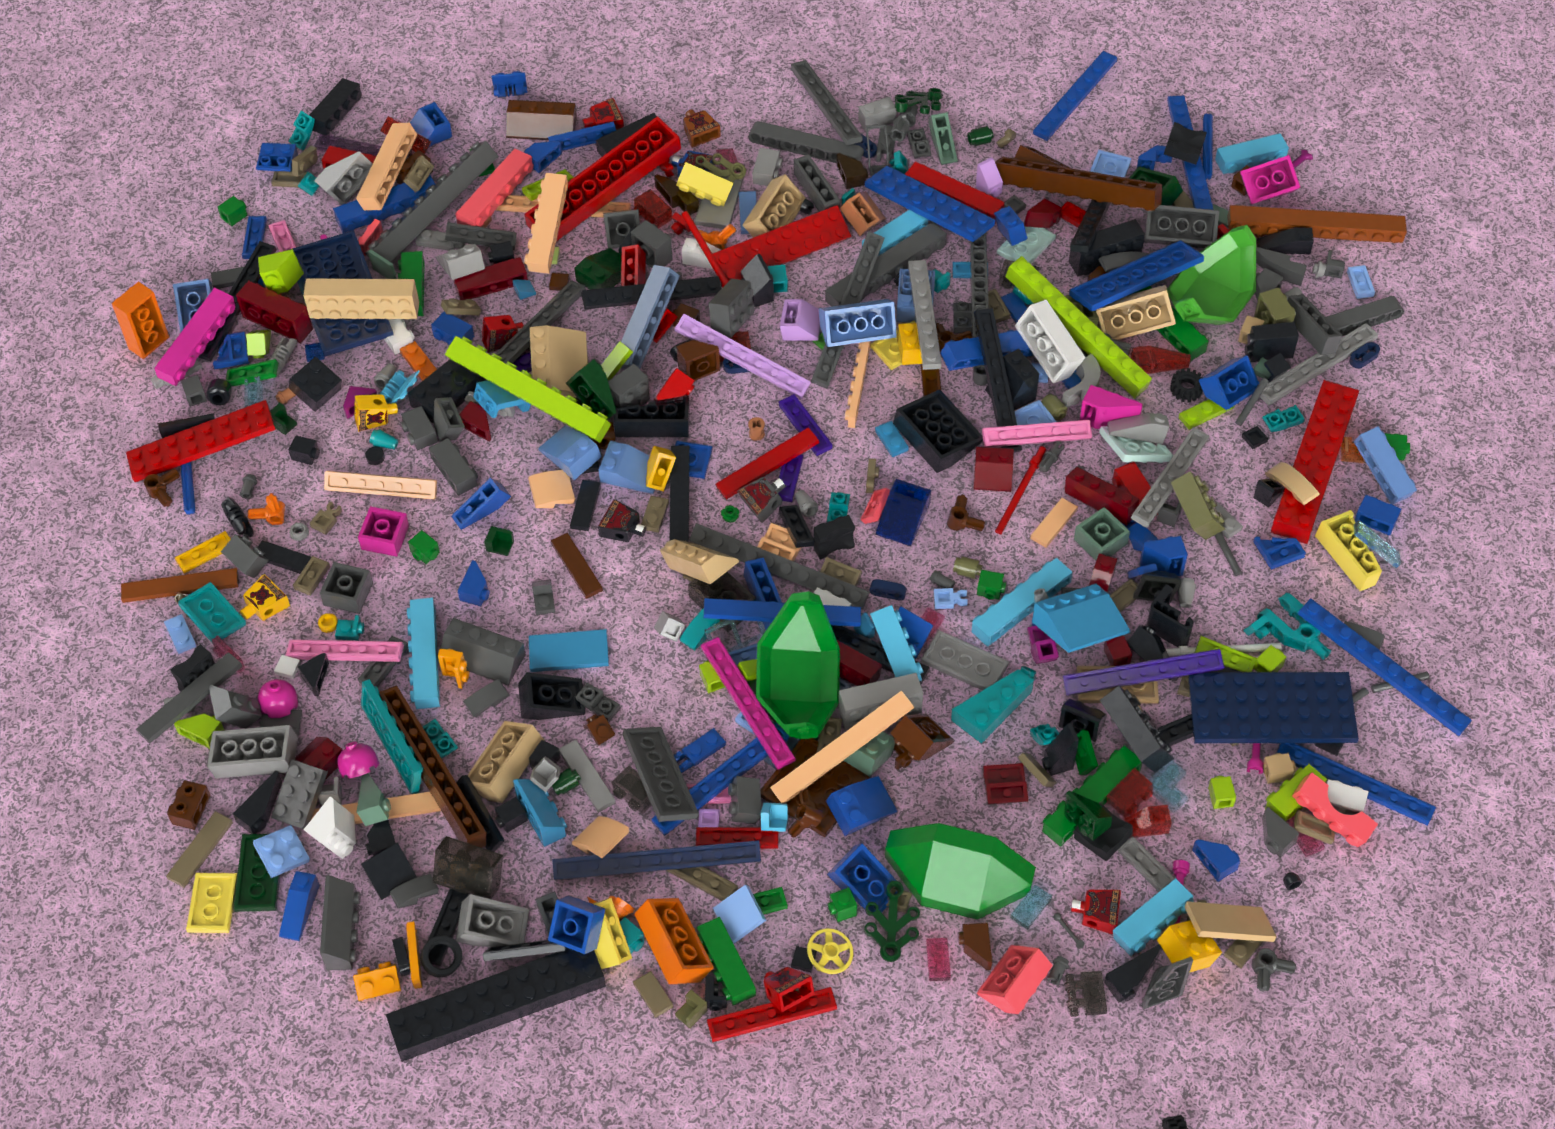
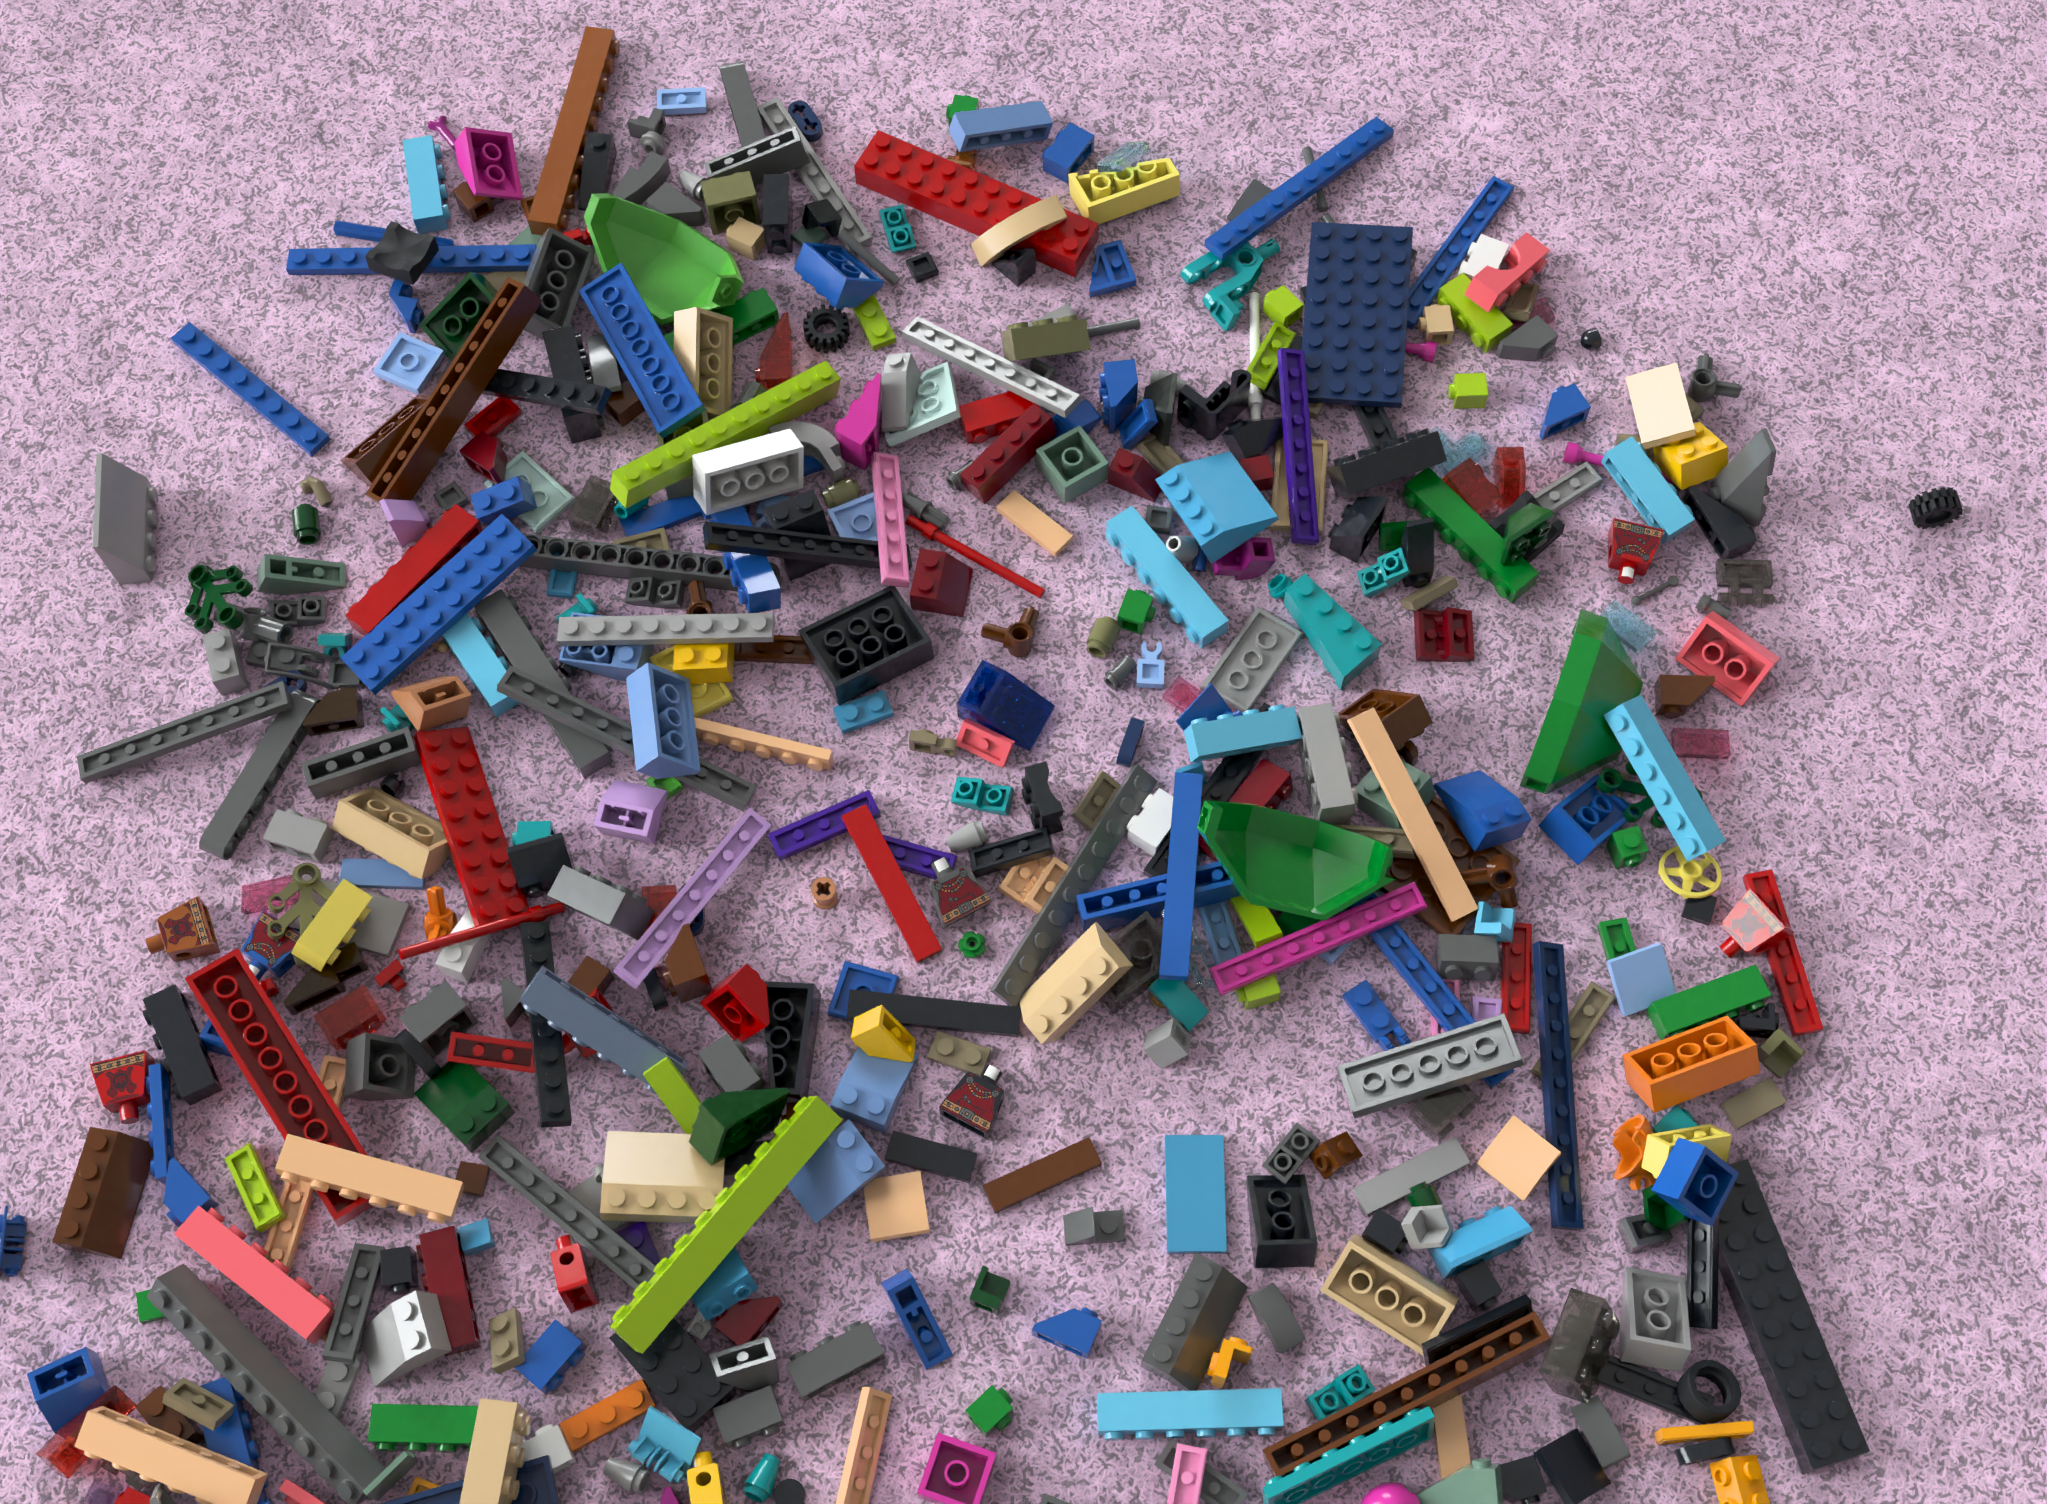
camera: 85 degrees left, 10 degrees up
(894, 917) = (1664, 778): none -> medium azure brick
(961, 45) = (124, 521): none -> light grey slope

